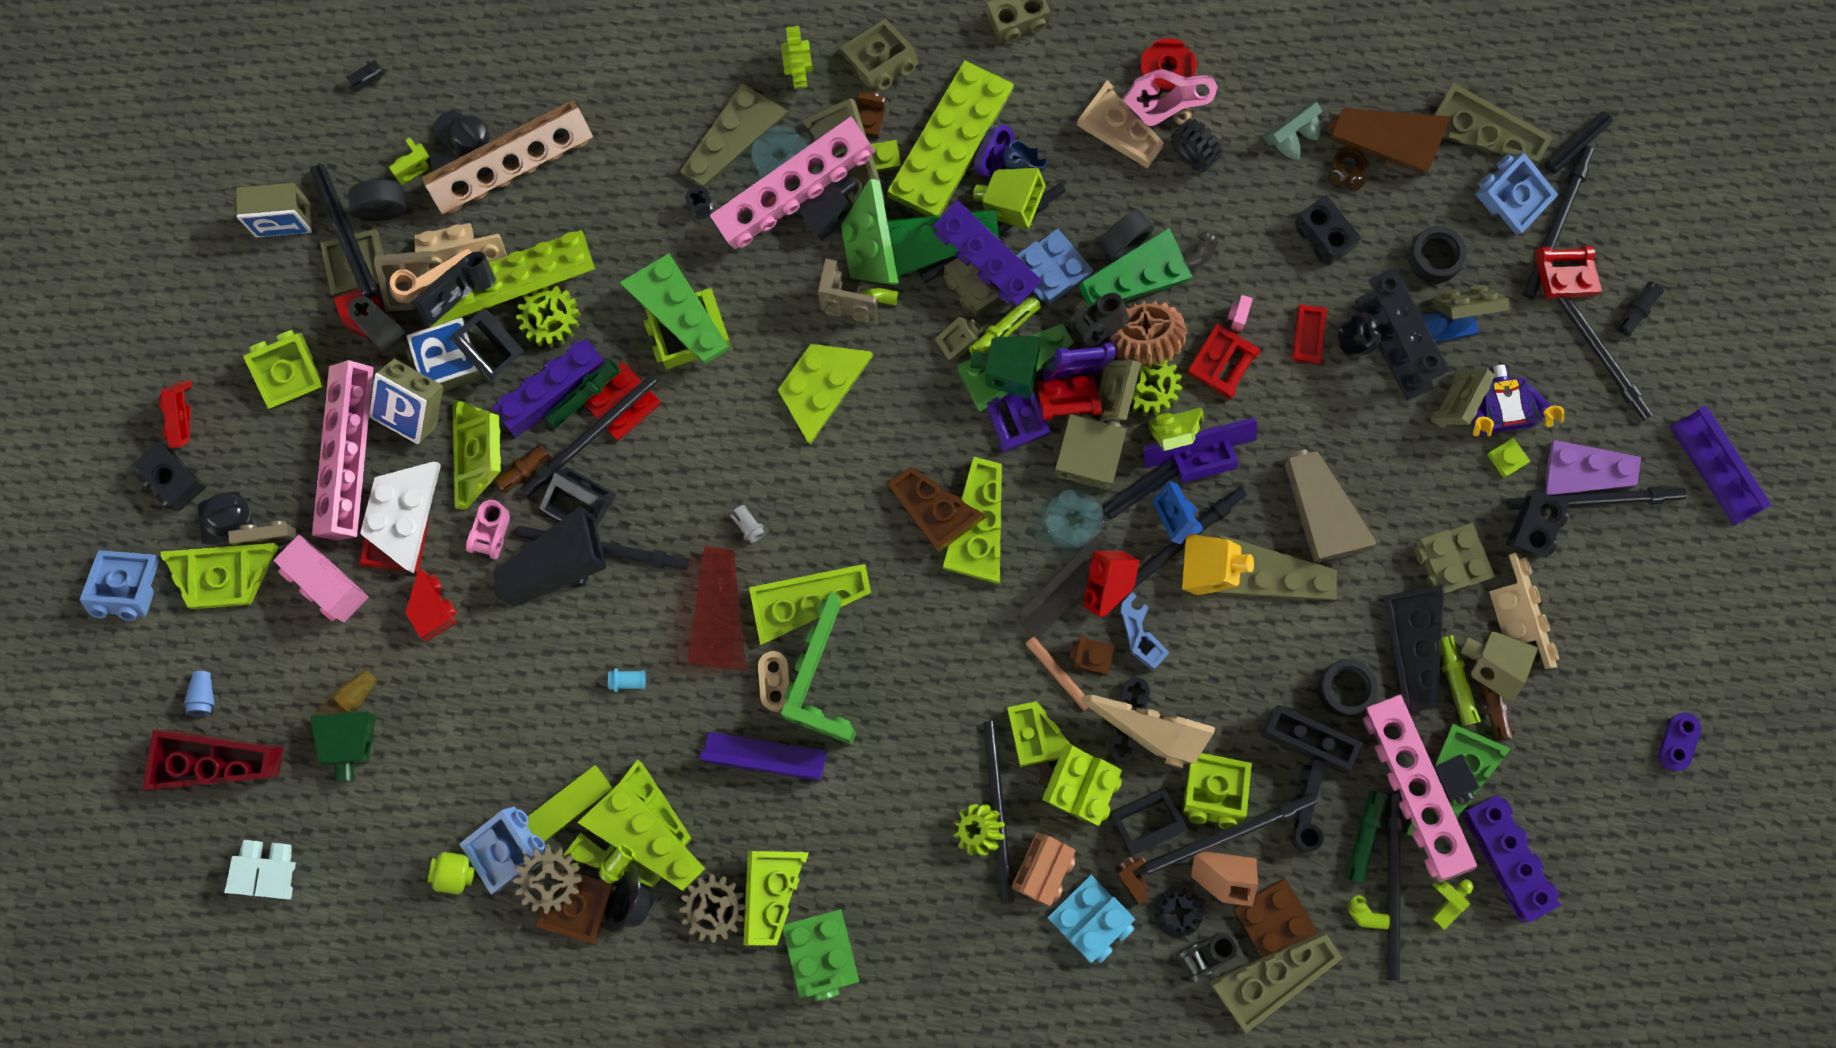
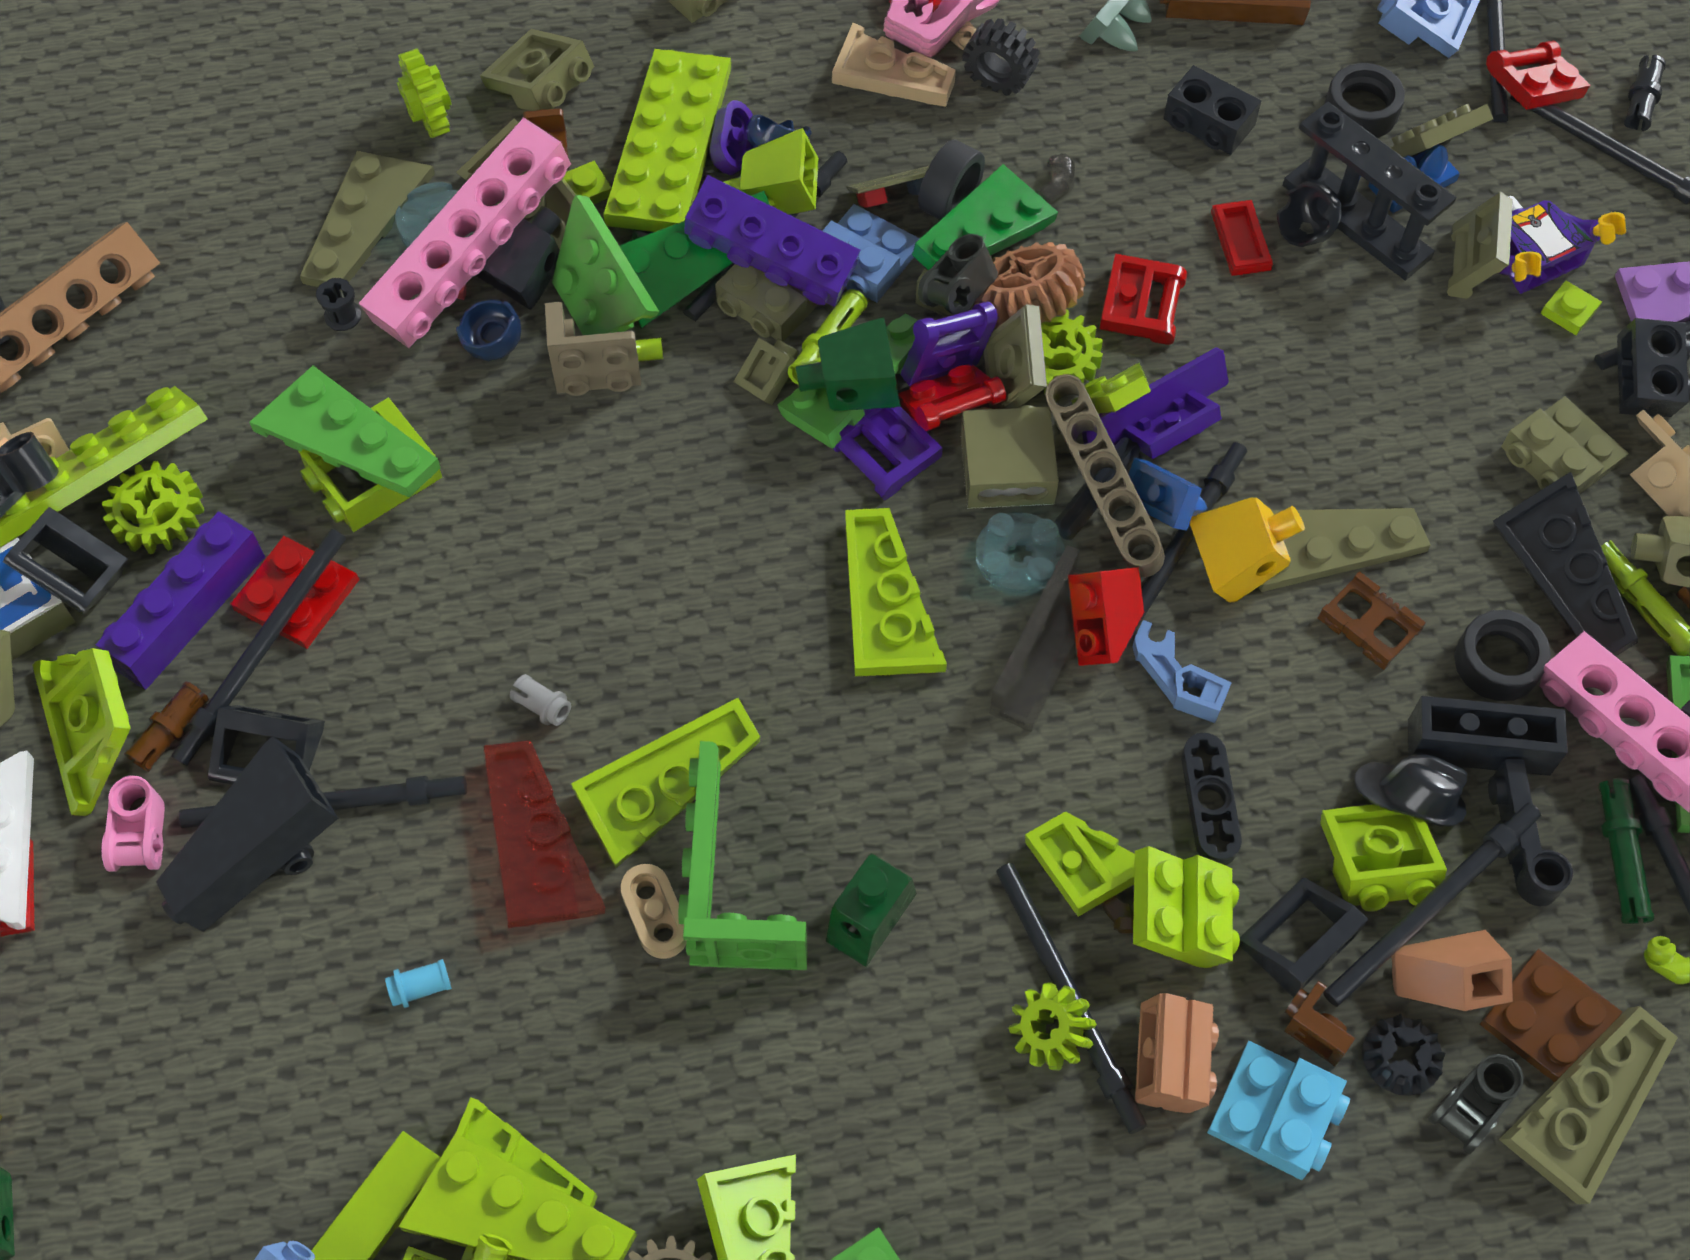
camera: 20 degrees left, 15 degrees down
(428, 609) = (61, 975): red slope -> none
(591, 385) = (238, 582): dark green pin -> none
(764, 756) = (674, 1030): dark purple fence -> none
(795, 246) = (494, 322): none -> dark blue hair
(820, 384) = (589, 485): lime wing -> none
(899, 723) = (873, 905): none -> dark green torso
(934, 509) = (813, 595): reddish brown wing -> none
(1056, 671) = (1081, 767): nougat bar -> none
(1073, 221) = (873, 191): none -> piece
(1091, 655) = (1119, 726): reddish brown bracket -> none
(1136, 476) = (1099, 455): none -> dark tan beam
(1171, 738) = (1273, 795): tan wedge -> none
(1239, 313) = (1140, 233): bright pink plate -> none
(1256, 758) = (1417, 787): none -> black piece
(1268, 641) = (1362, 630): none -> reddish brown piece
(1325, 511) = (1364, 437): dark tan slope -> none
(1338, 176) = (1198, 51): dark brown piece -> none

